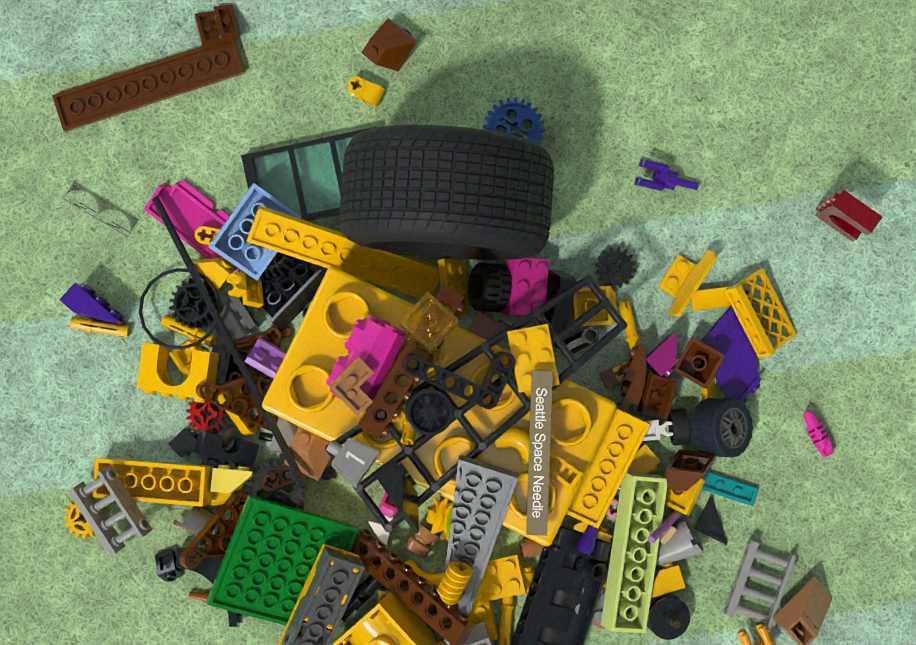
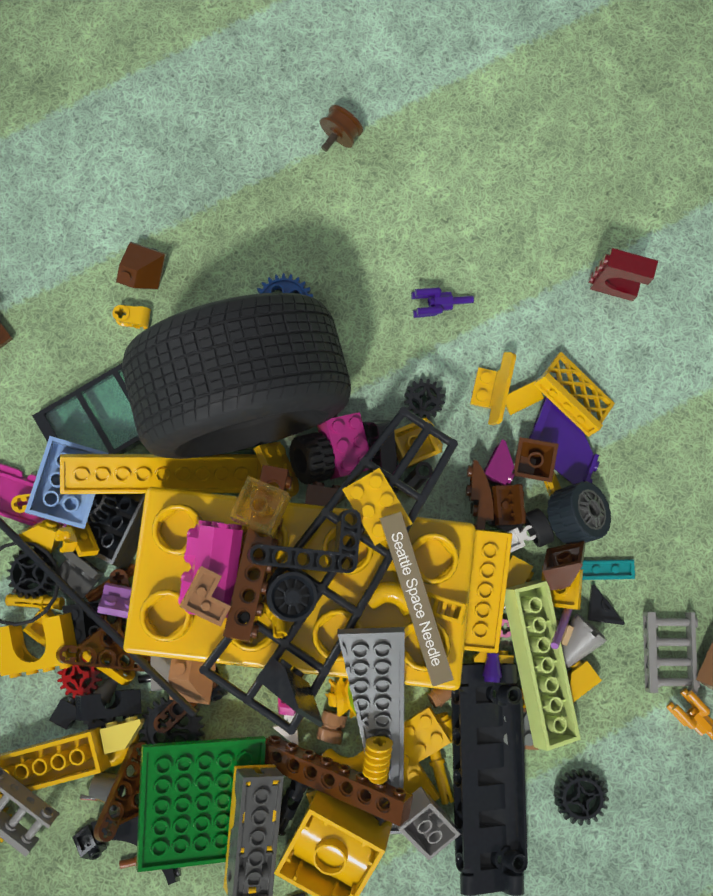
camera: 25 degrees left, 5 degrees down
(352, 459) = (231, 673): light grey torso -> none
(613, 375) = (458, 501): reddish brown leg -> none
(630, 330) = (460, 454): yellow pin -> none
(668, 616) = (596, 715): black wheel -> none
(818, 434) = (670, 488): dark pink hinge -> none

